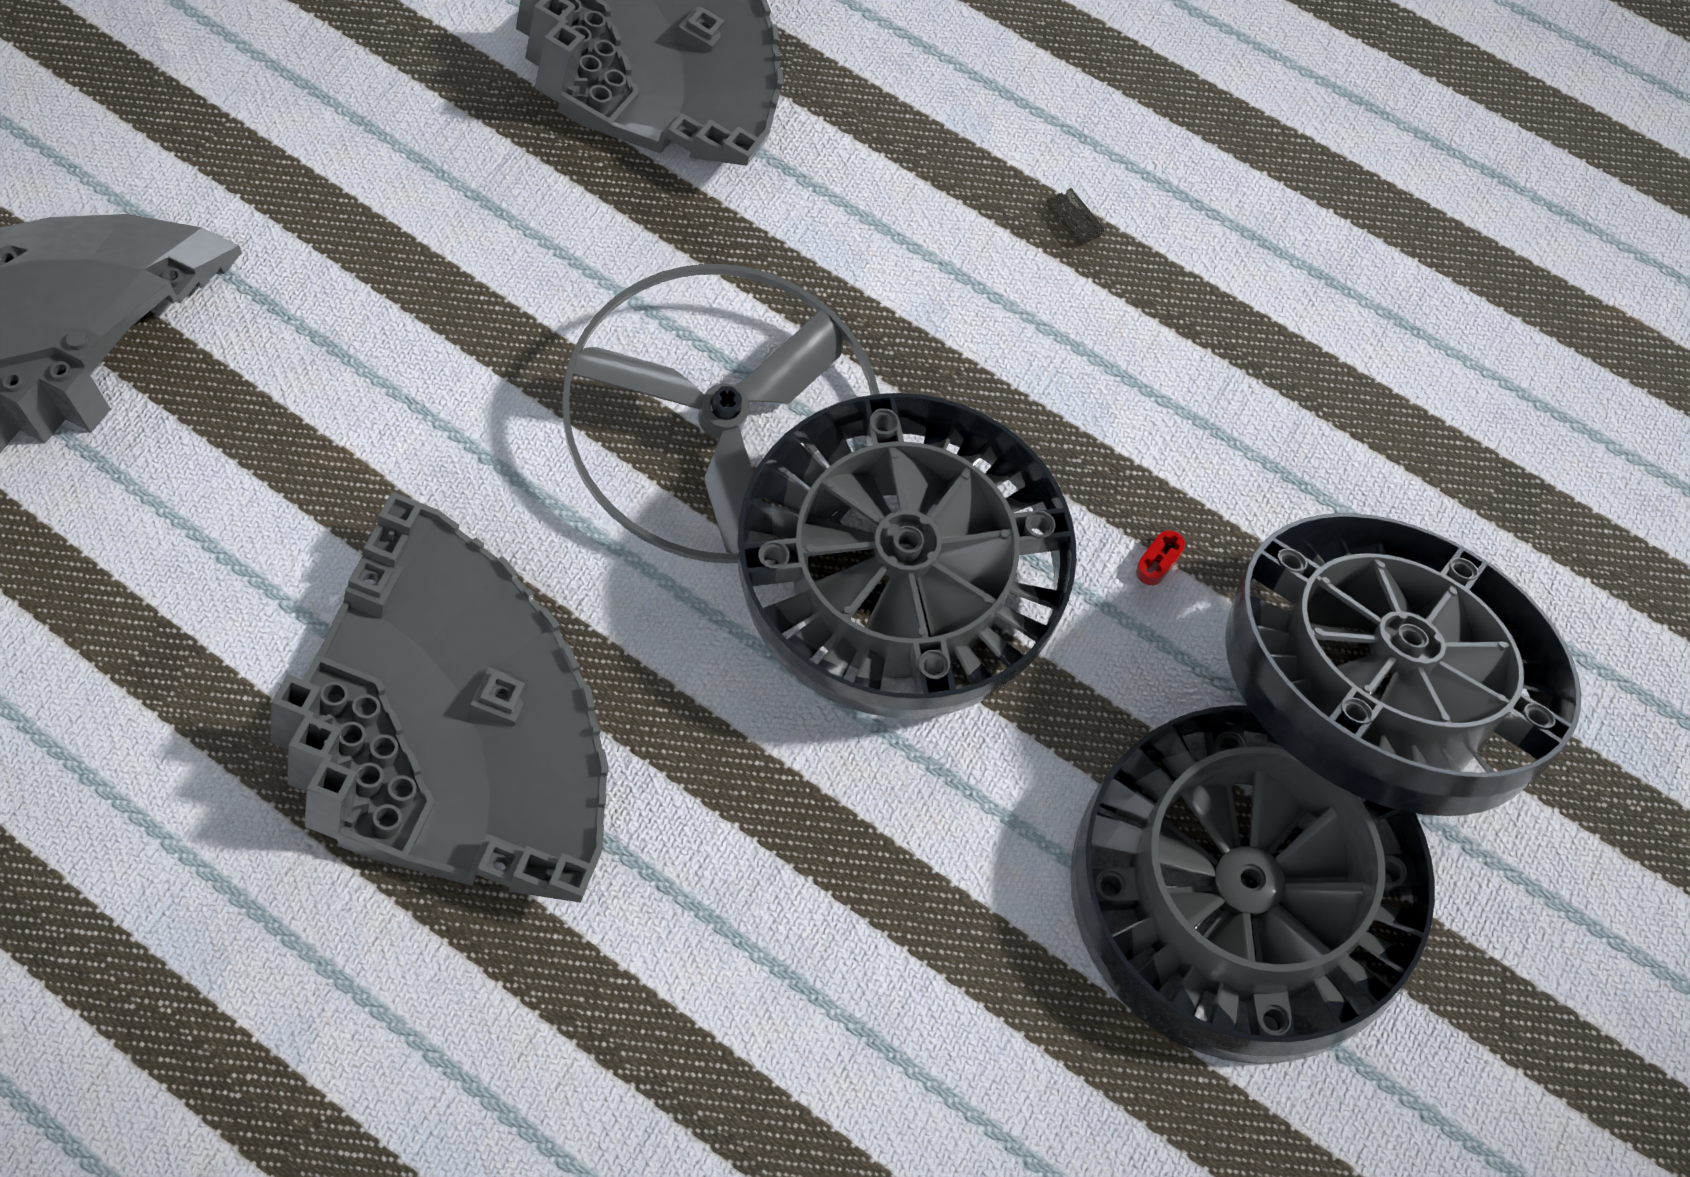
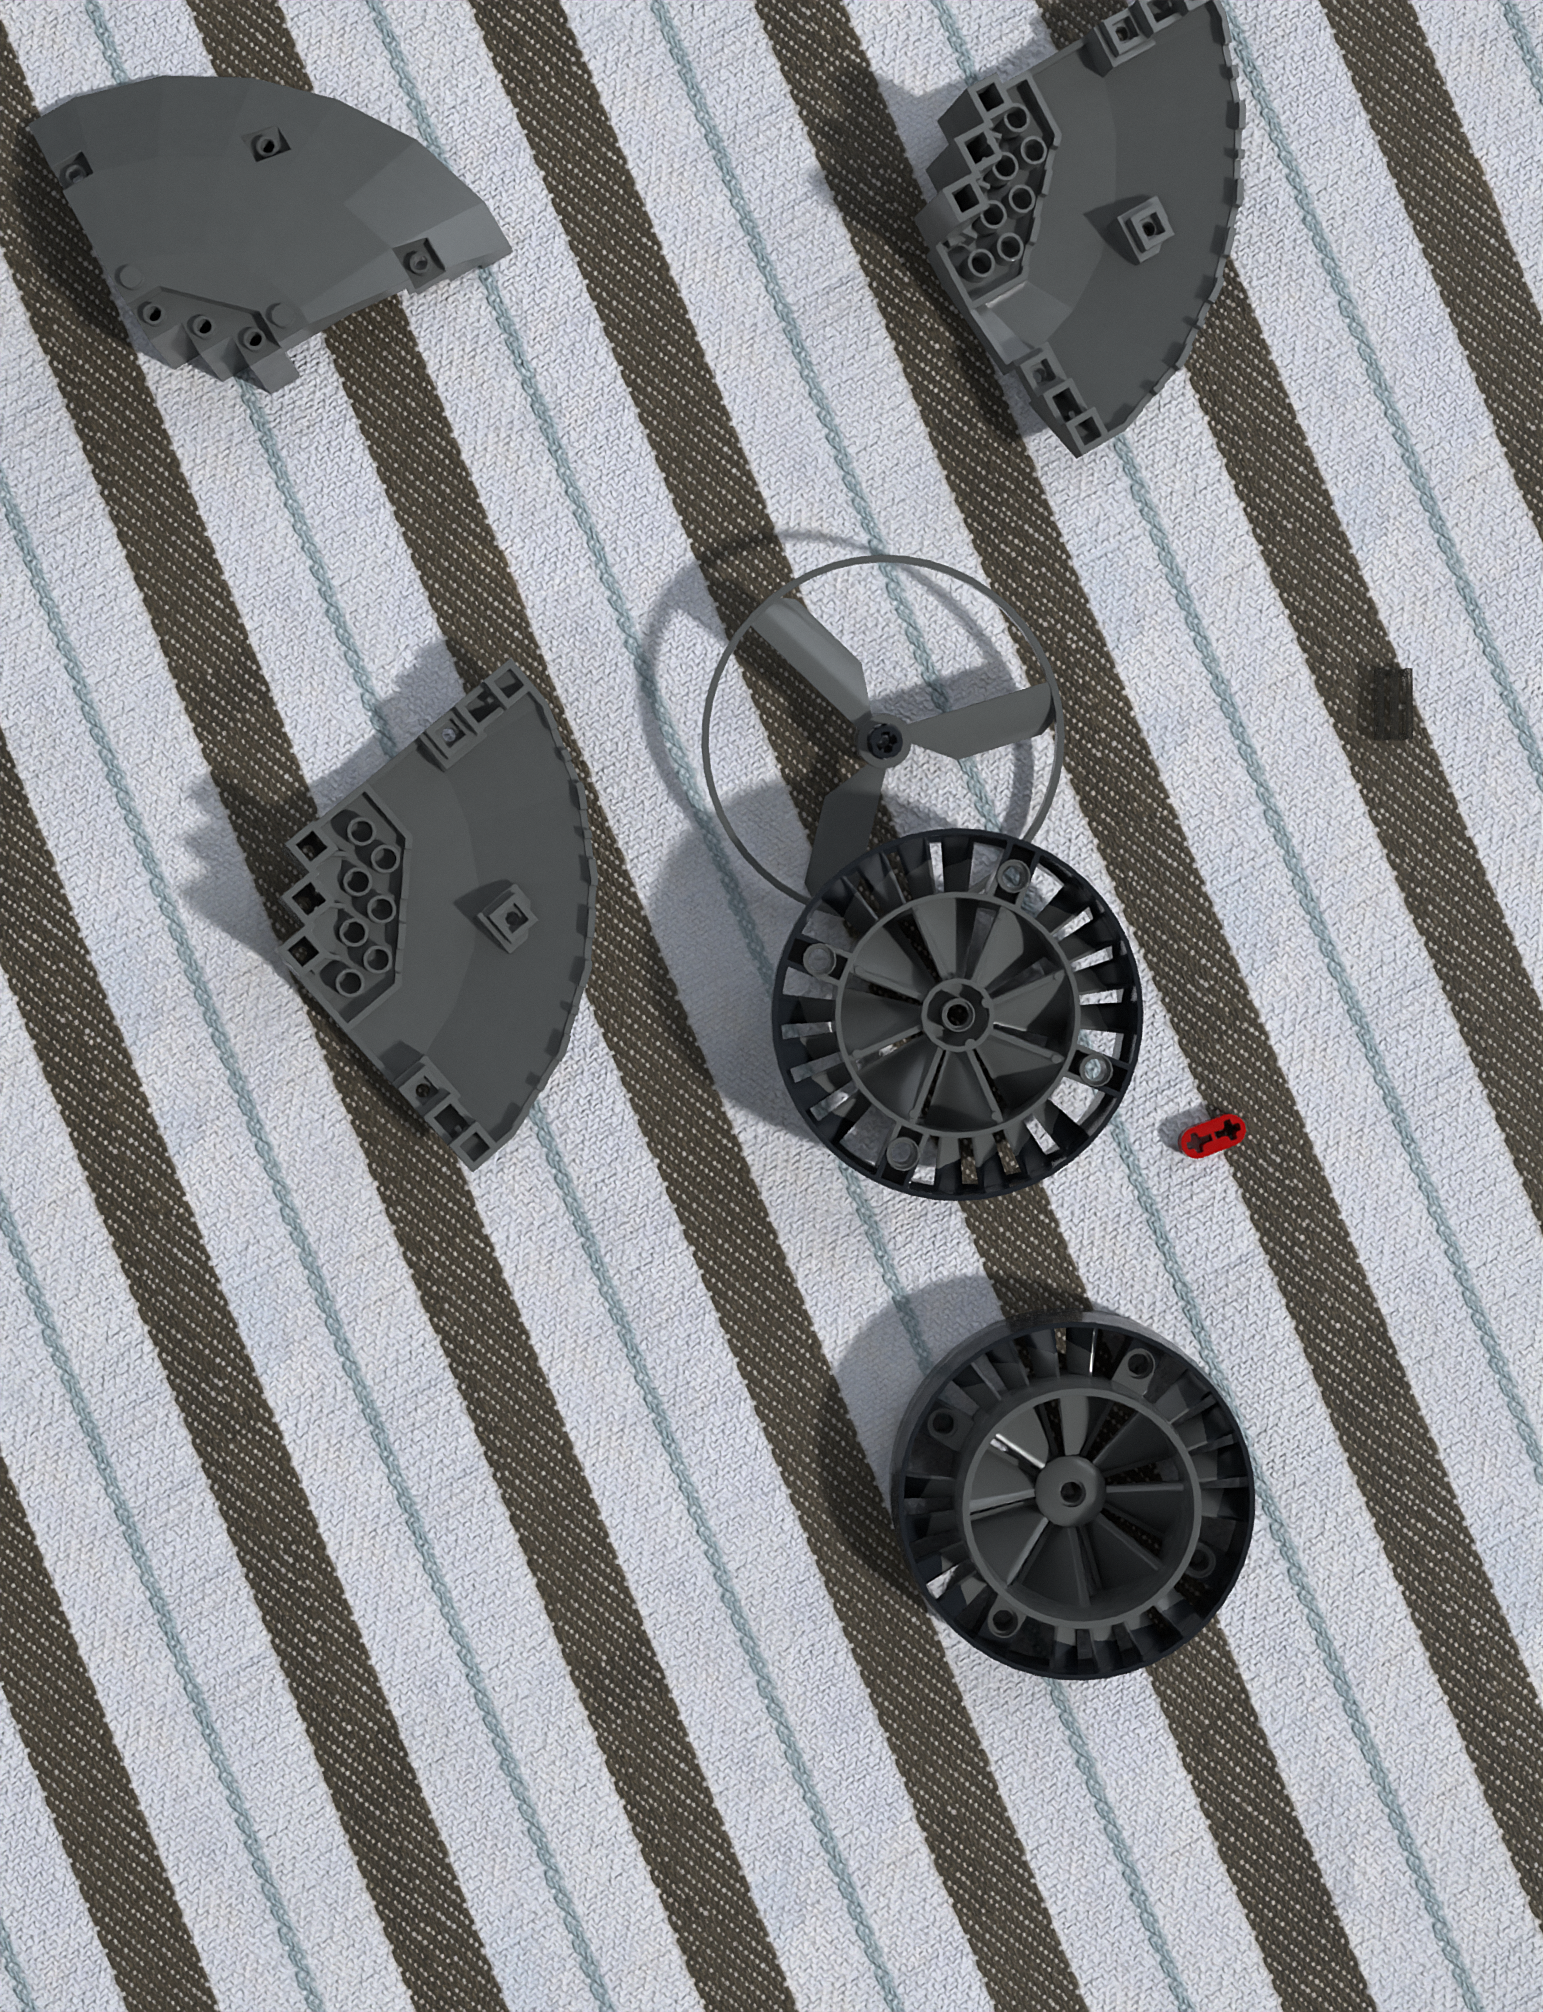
camera: 35 degrees right, 25 degrees up
(1445, 629) = (1354, 1468): piece -> none

